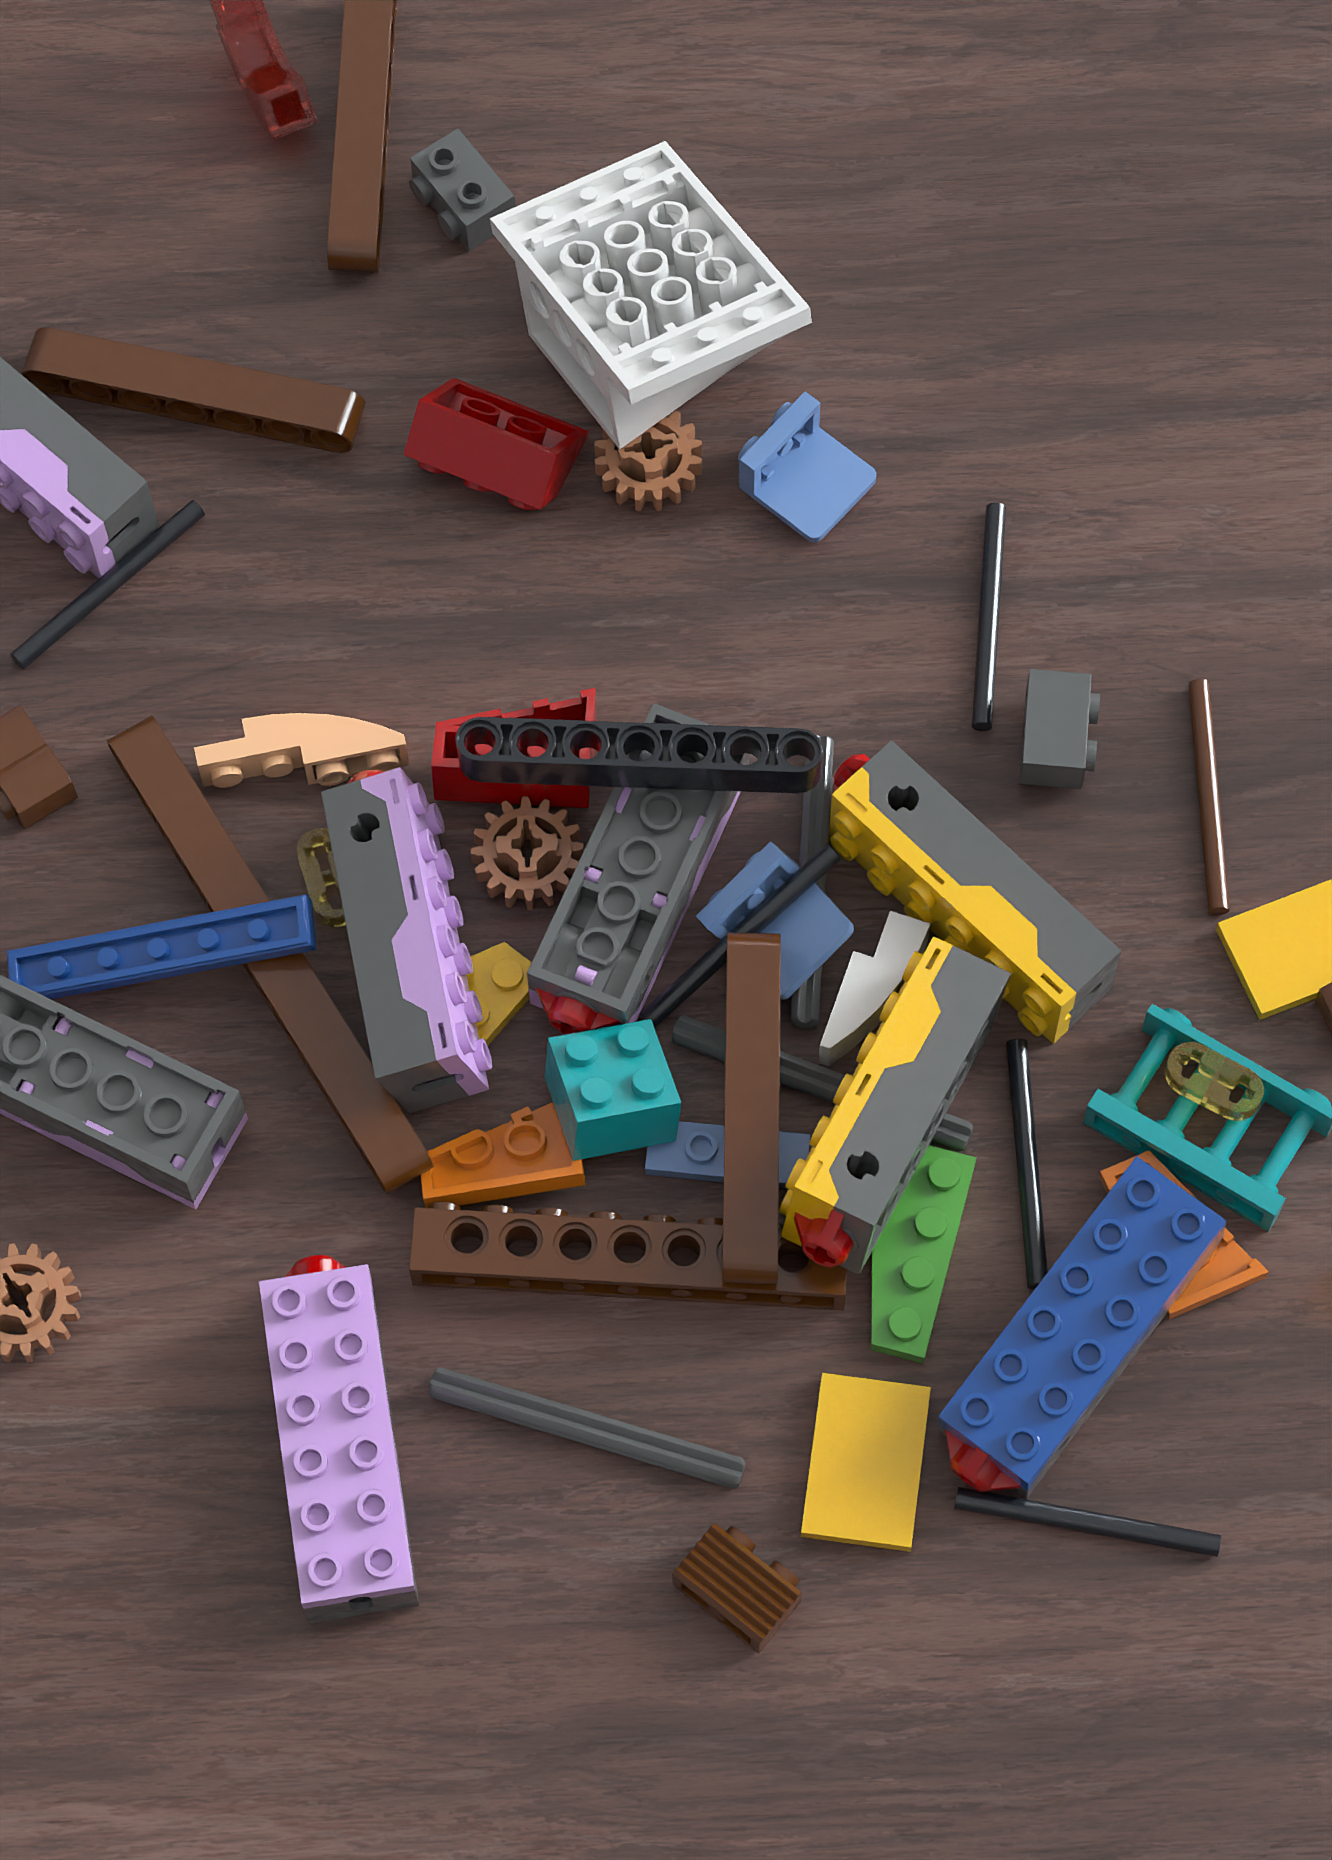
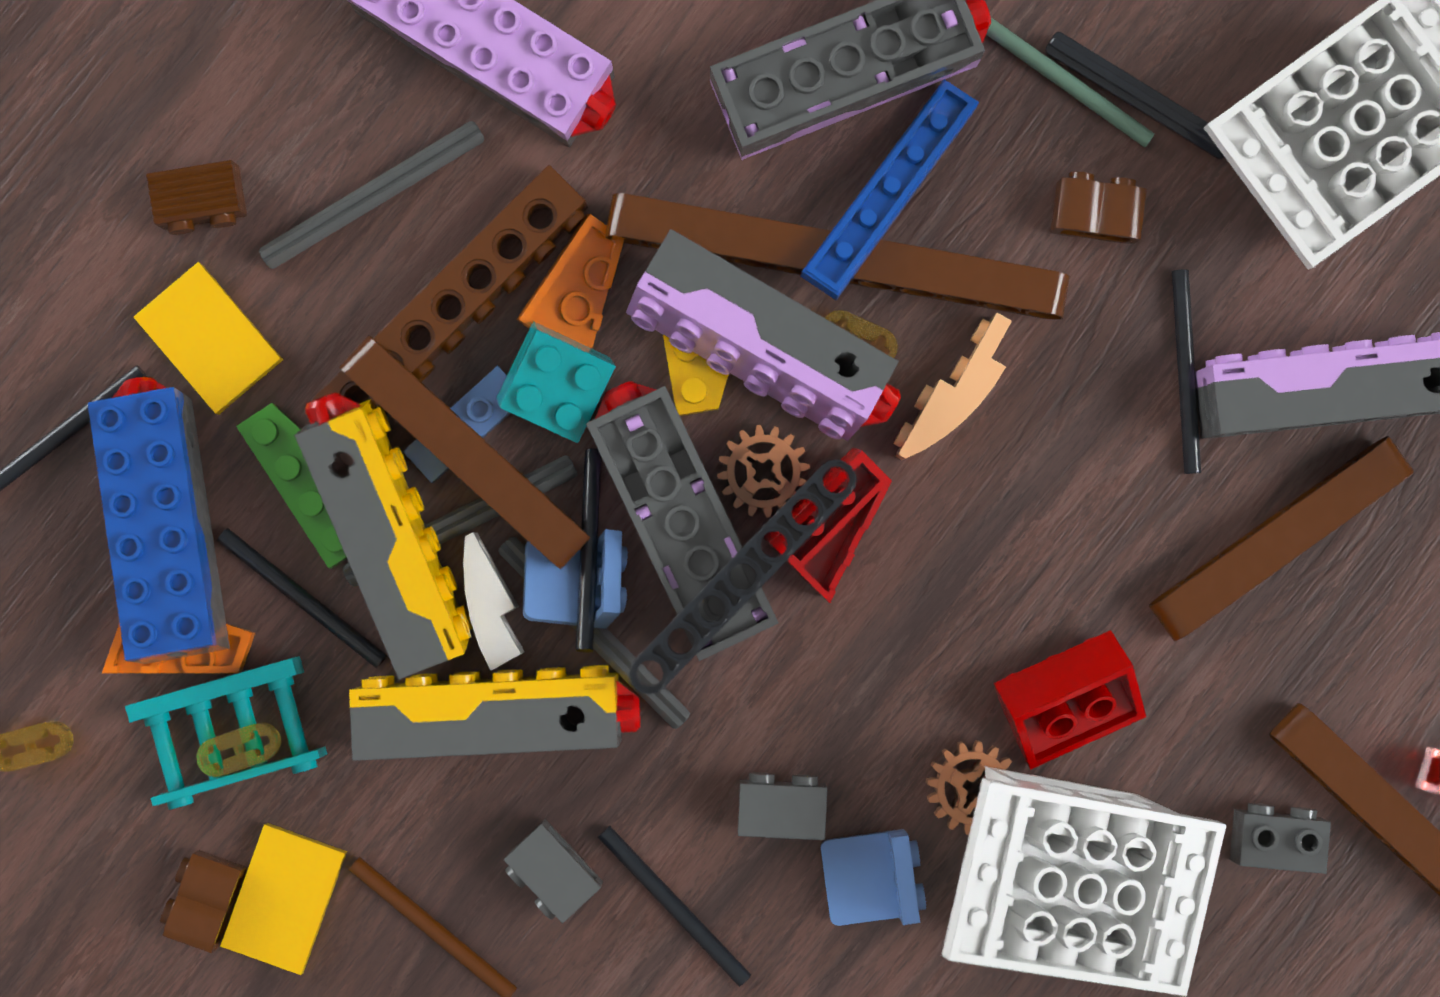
camera: 130 degrees right, 20 degrees up
(815, 589) = (782, 807): none -> dark grey brick

